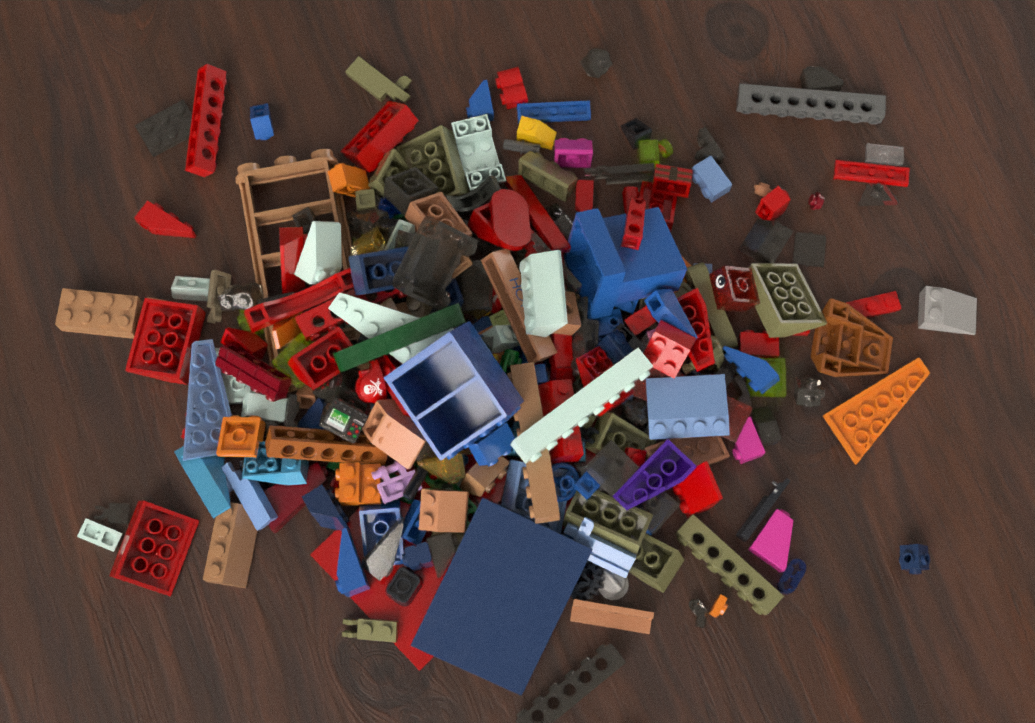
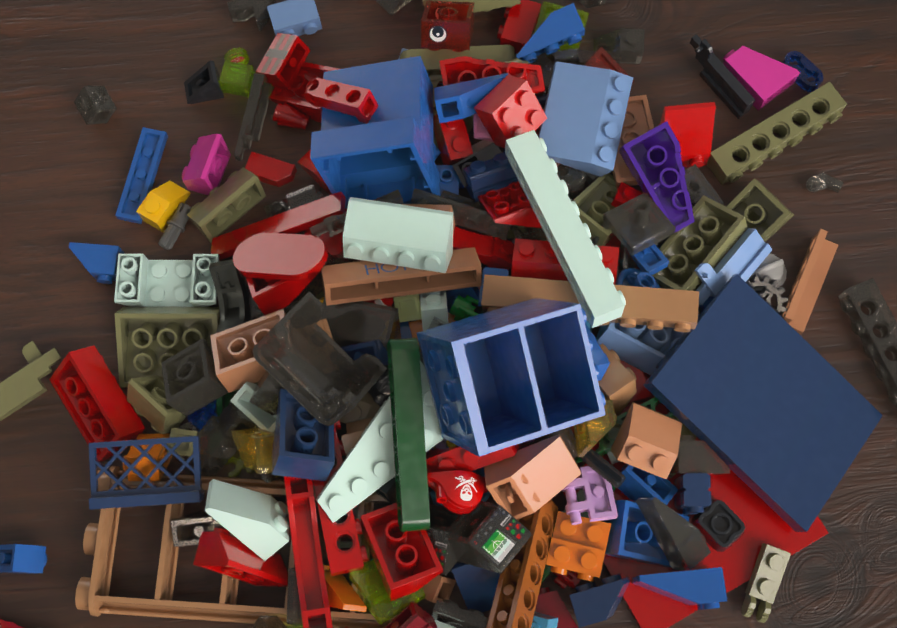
camera: 70 degrees left, 0 degrees up
(318, 185) = (145, 496): none -> dark blue fence
(511, 87) = (90, 216): red brick -> none
(719, 606) = (822, 158): orange plate -> none
(748, 444) = (642, 69): dark pink slope -> none

